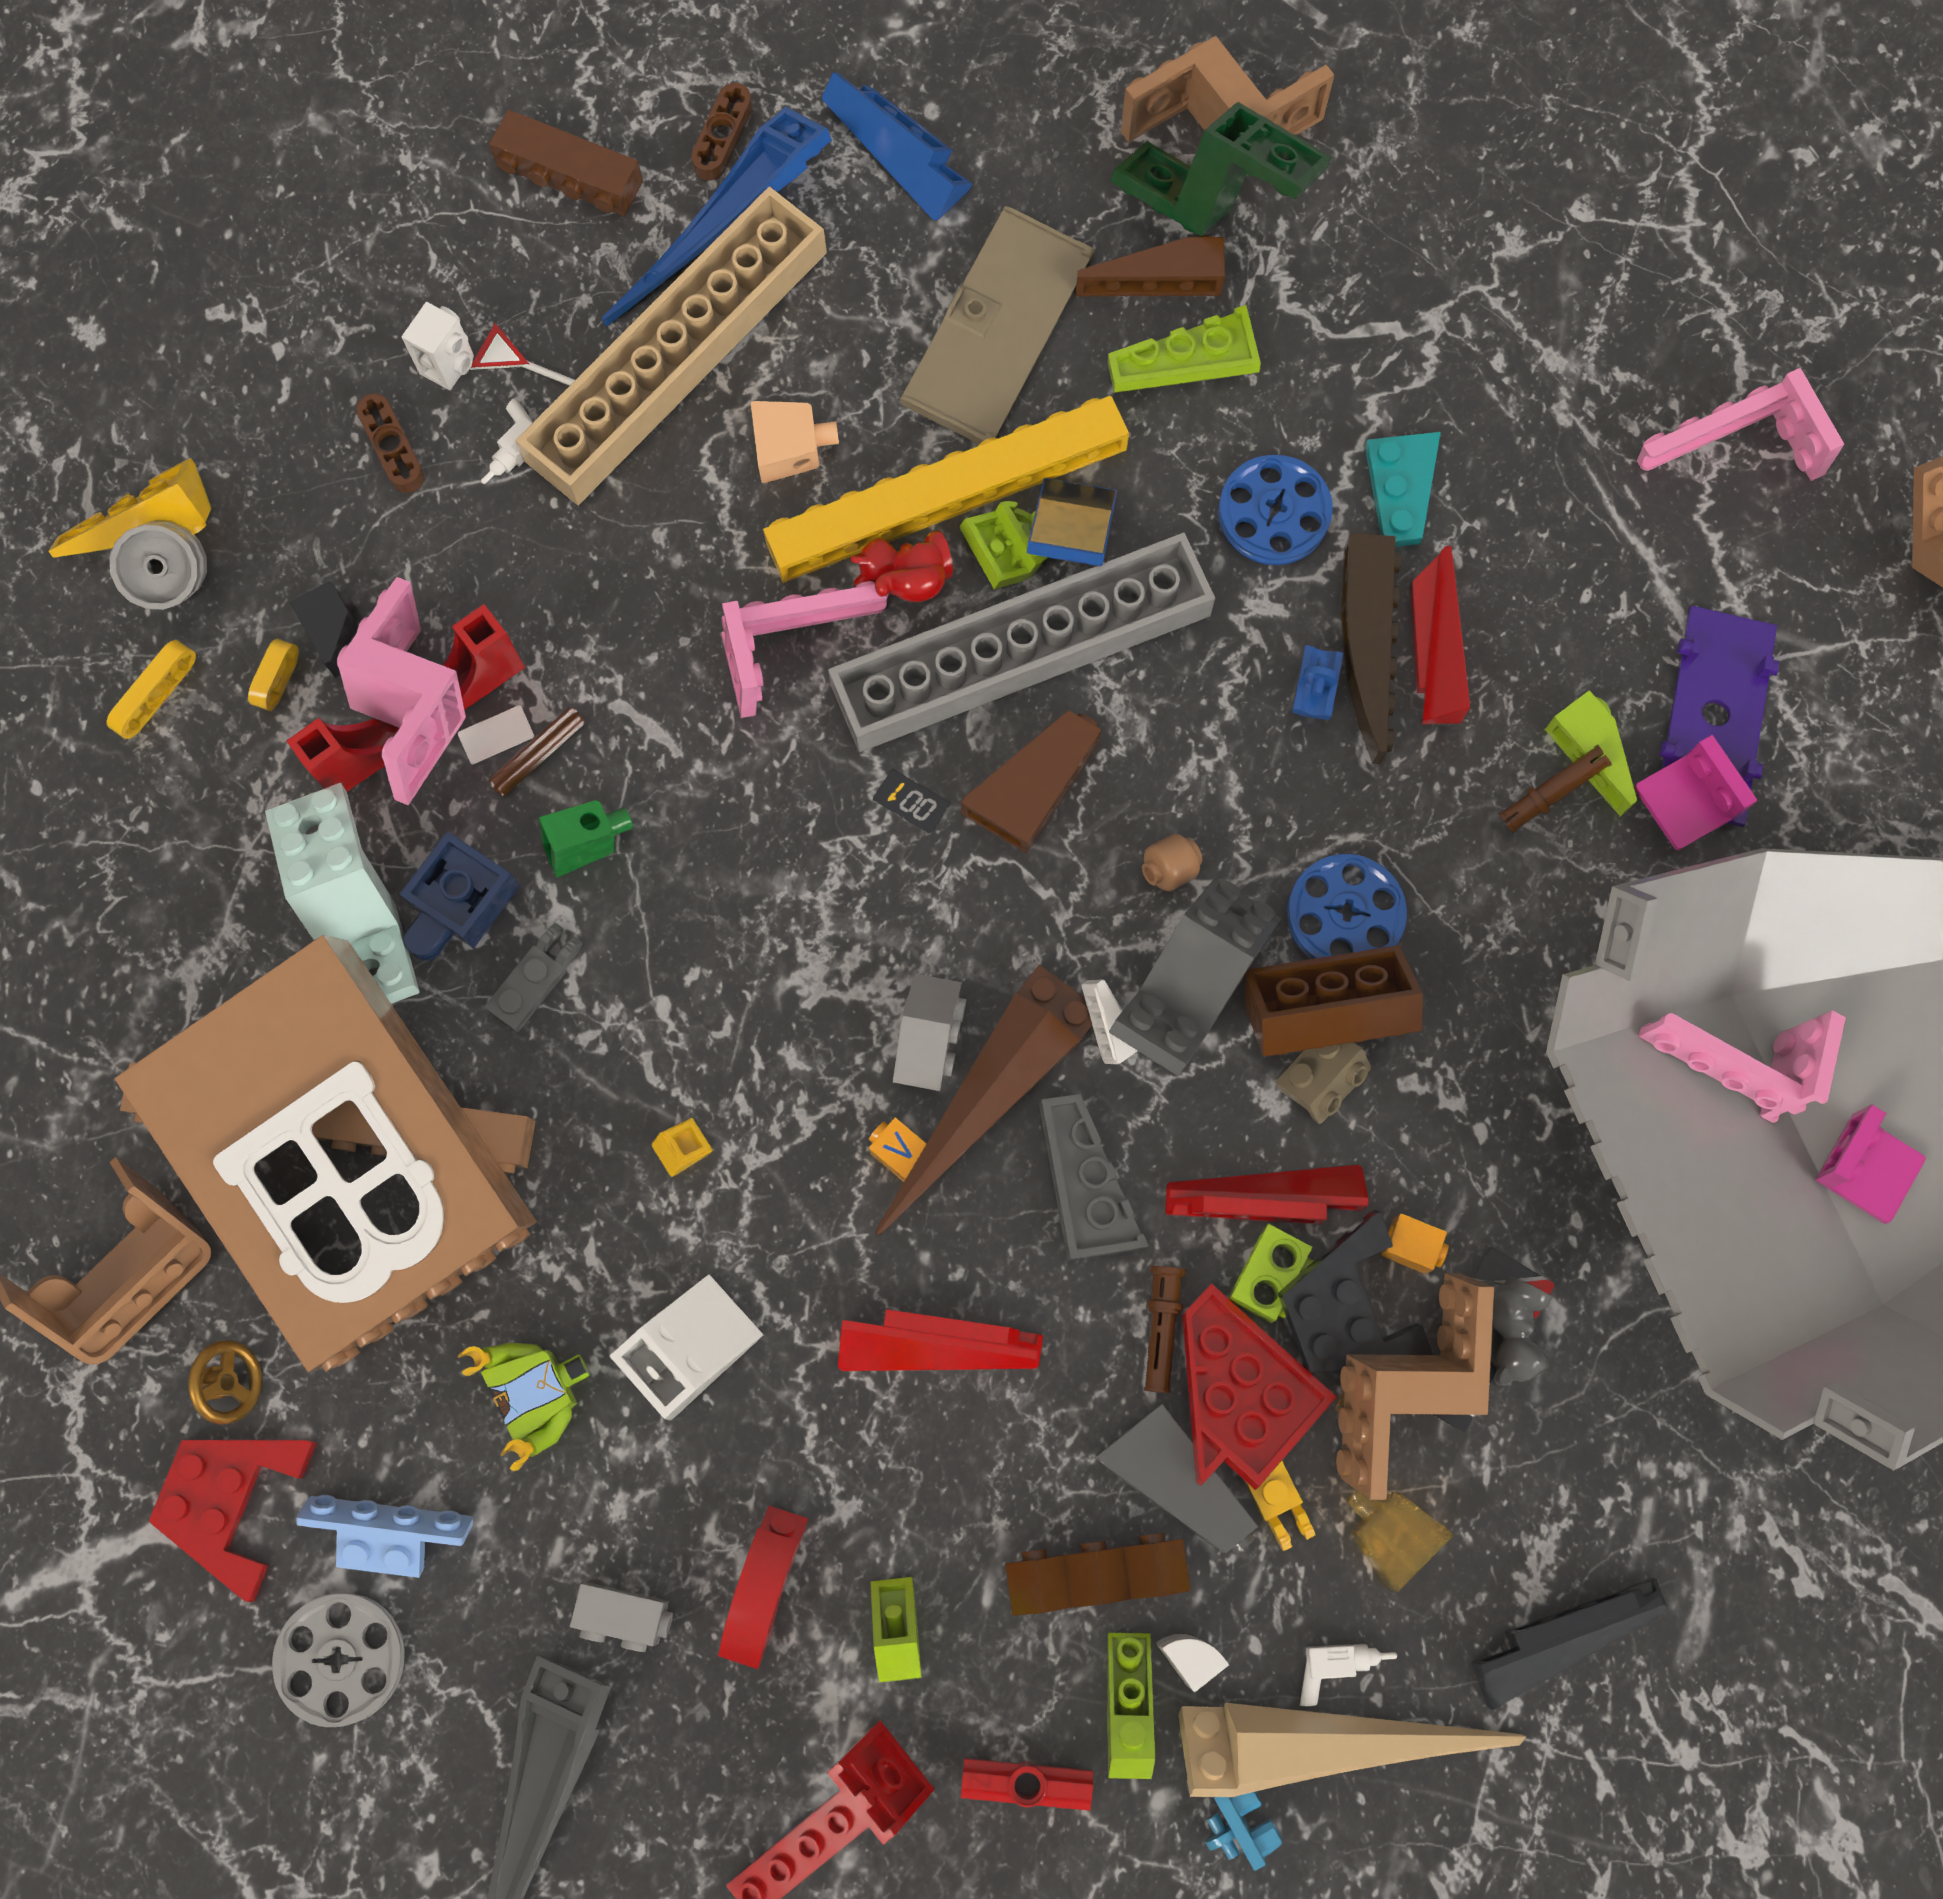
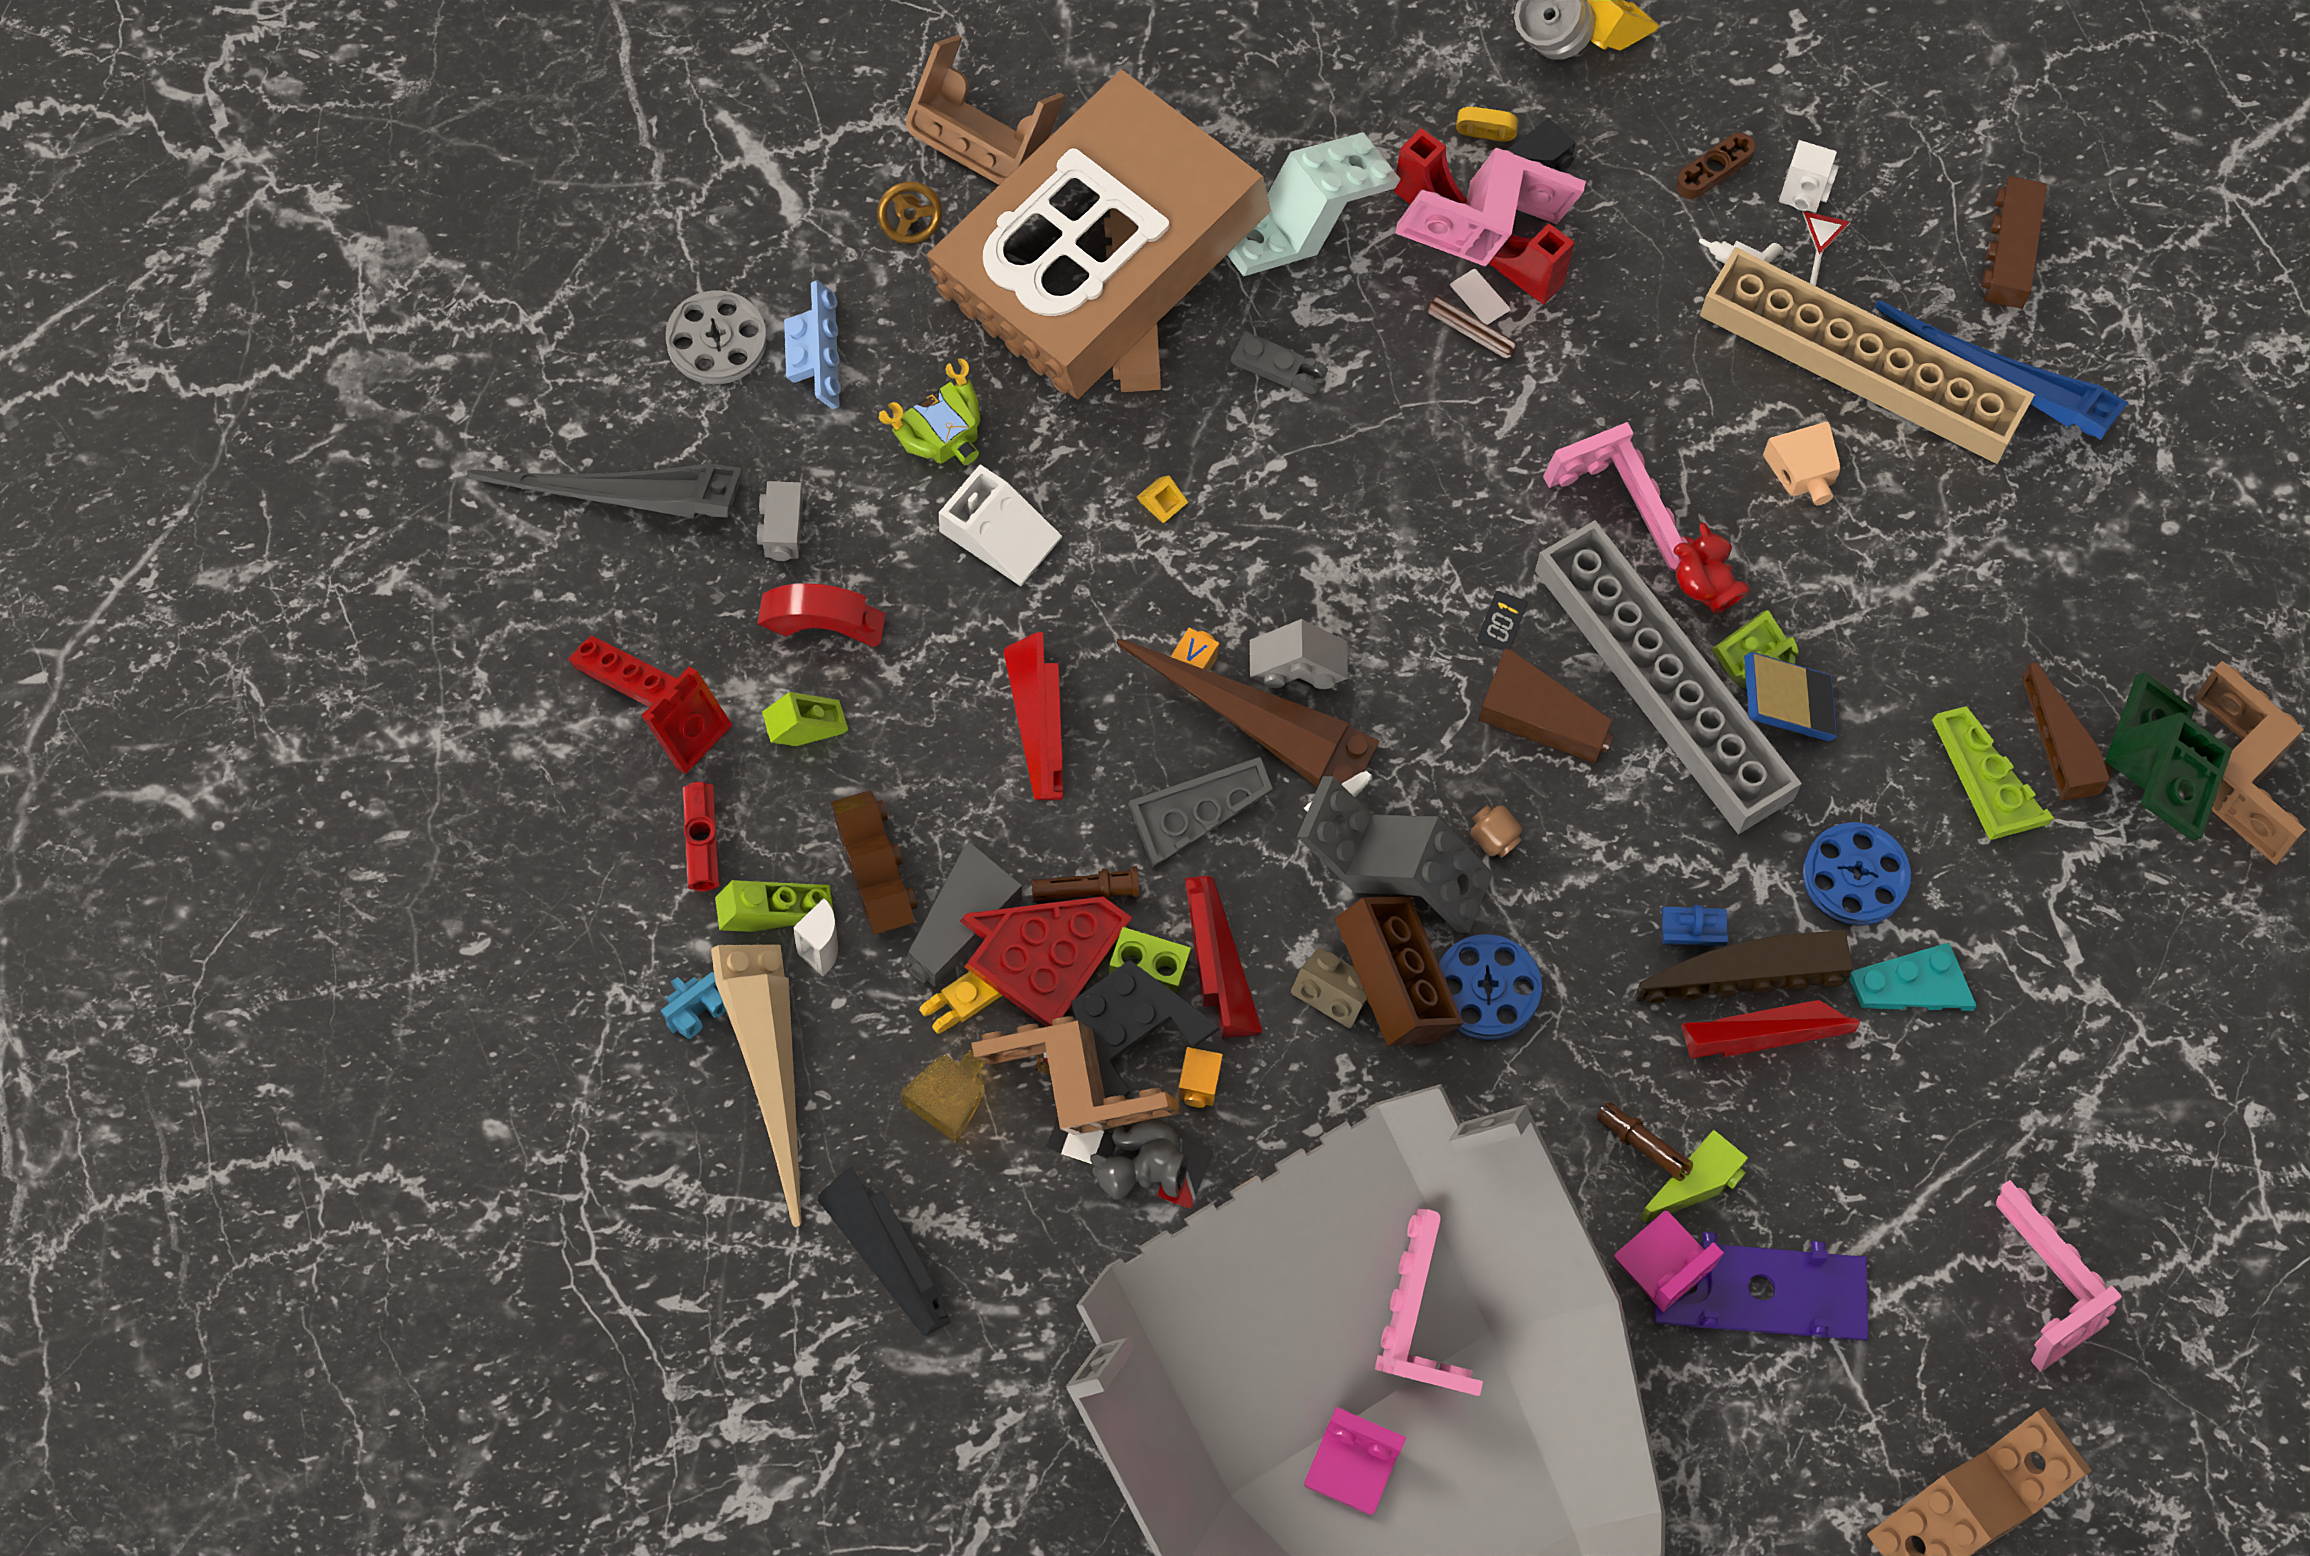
camera: 75 degrees right, 10 degrees down
(151, 689) = (1435, 36): yellow beam -> none
(208, 1497) = (823, 225): red wing -> none
(456, 896) = (1331, 289): dark blue brick -> none
(580, 835) = (1404, 367): green torso -> none
(724, 146) = (2100, 351): reddish brown beam -> none
(899, 145) = (2123, 504): blue wedge -> none
(946, 487) = (1798, 598): yellow brick -> none
(996, 326) = (1967, 613): dark tan door -> none
(1336, 1662) = (835, 1064): white piece -> none

